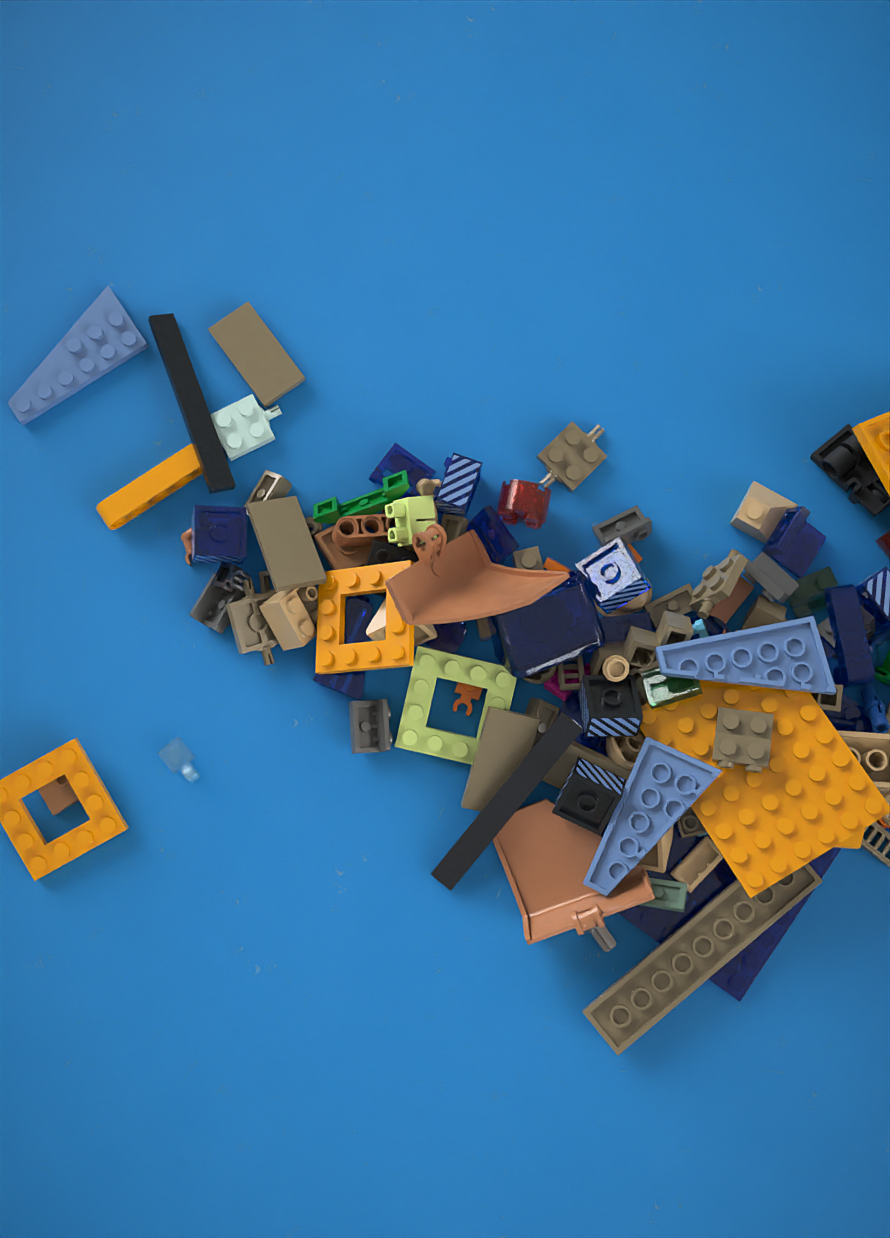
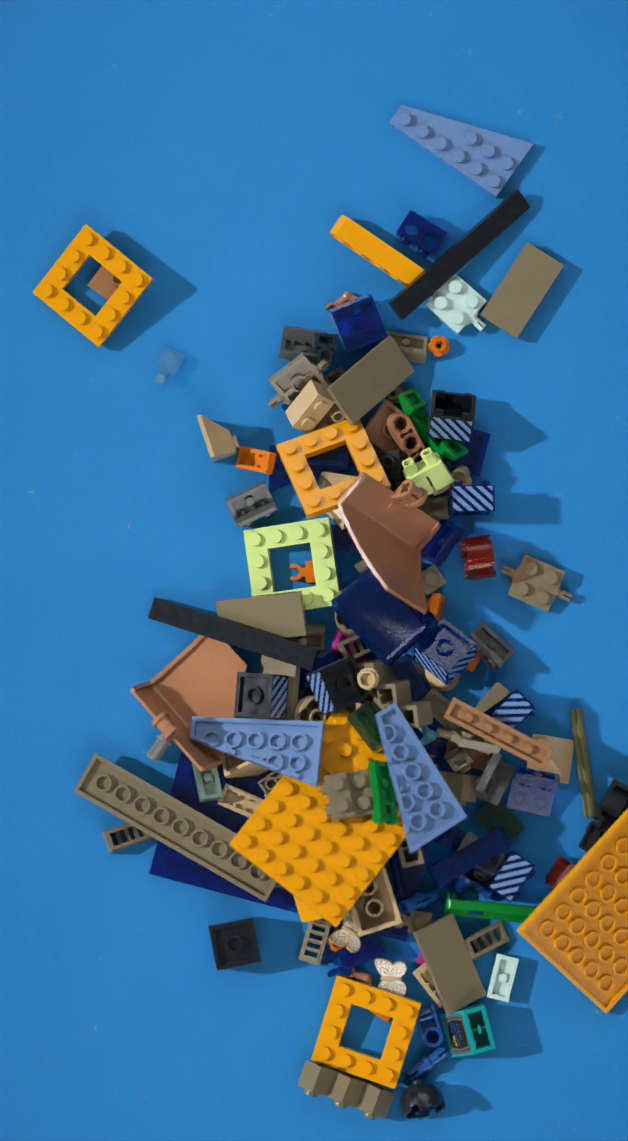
camera: 70 degrees right, 5 degrees up
(149, 428) = (425, 229): none -> clear blue brick
(280, 468) = (443, 341): none -> orange plate
(282, 735) = (217, 439): none -> tan slope
(323, 702) = (255, 460): none -> orange plate
(360, 472) = (451, 416): none -> black container
(679, 550) = (492, 697): none -> dark tan slope
(696, 1033) = (109, 843): none -> dark tan slope
(705, 534) = (513, 709): none -> container
(728, 549) = (498, 733): none -> medium nougat plate
(736, 606) = (460, 760): none -> dark tan gear
(756, 700) = (382, 794): none -> green plate
(781, 480) = (583, 762): none -> olive axle
(854, 934) = (234, 943): none -> black container

